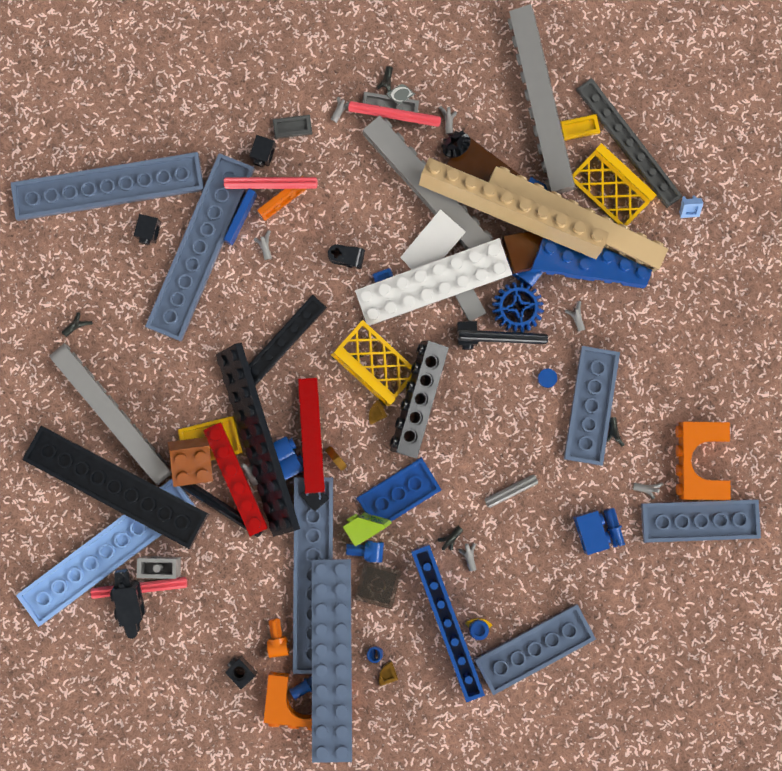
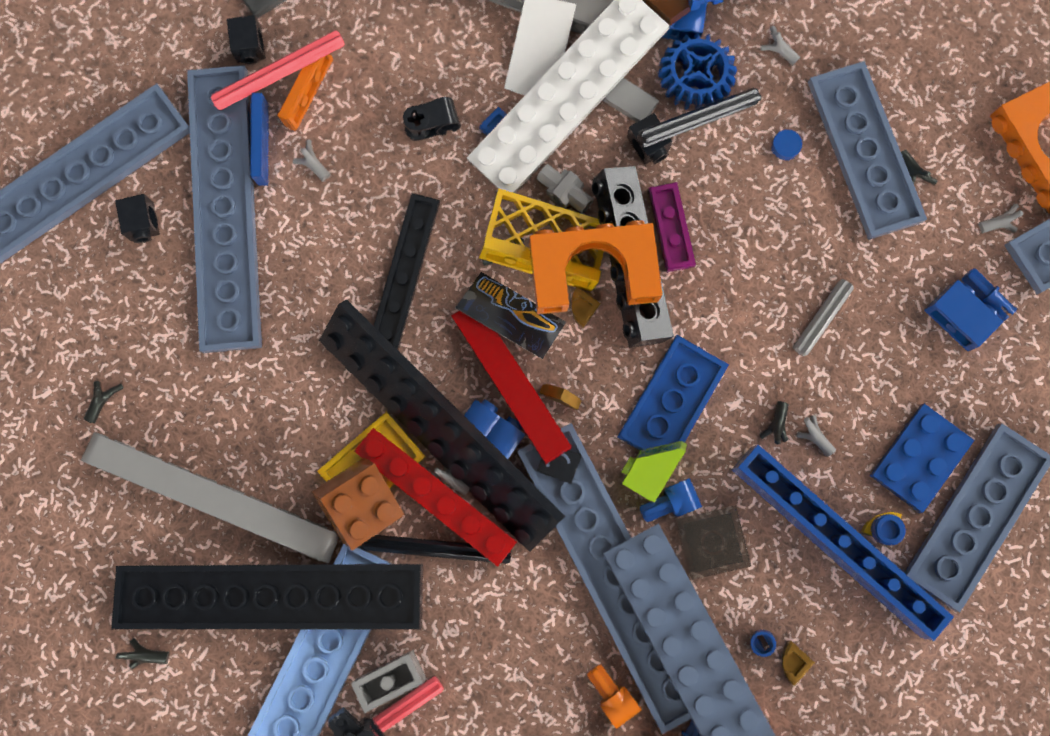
camera: 25 degrees left, 5 degrees down
(32, 482) = (143, 655): none -> pearl dark grey bar
(332, 396) = (510, 315): none -> black sticker
(402, 338) = (565, 188): none -> light grey axle
(418, 395) = (630, 244): none -> orange arch
(453, 392) = (671, 227): none -> magenta tile
(522, 600) = (922, 458): none -> blue plate

